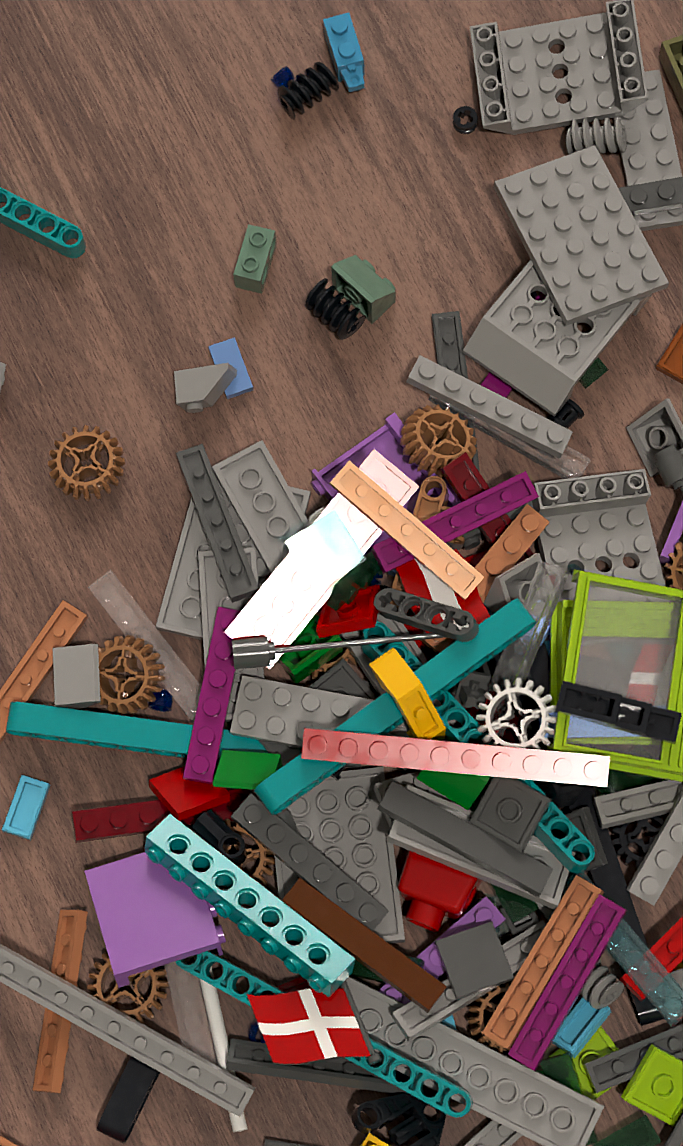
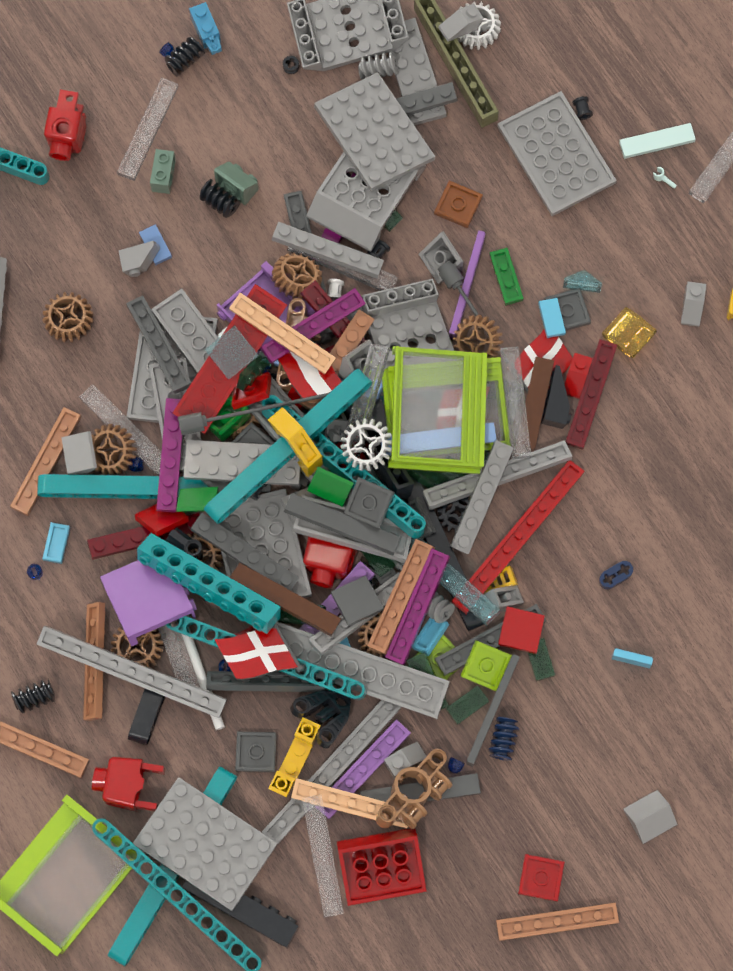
camera: 10 degrees left, 0 degrees up
(117, 176) = (65, 127): none -> red piece
(240, 193) = (147, 129): none -> clear plate
(427, 611) = (302, 382): dark grey beam -> none
(455, 757) = (329, 472): plate -> none
(493, 467) = (335, 288): none -> white bush
(618, 712) = (430, 432): black slope -> none

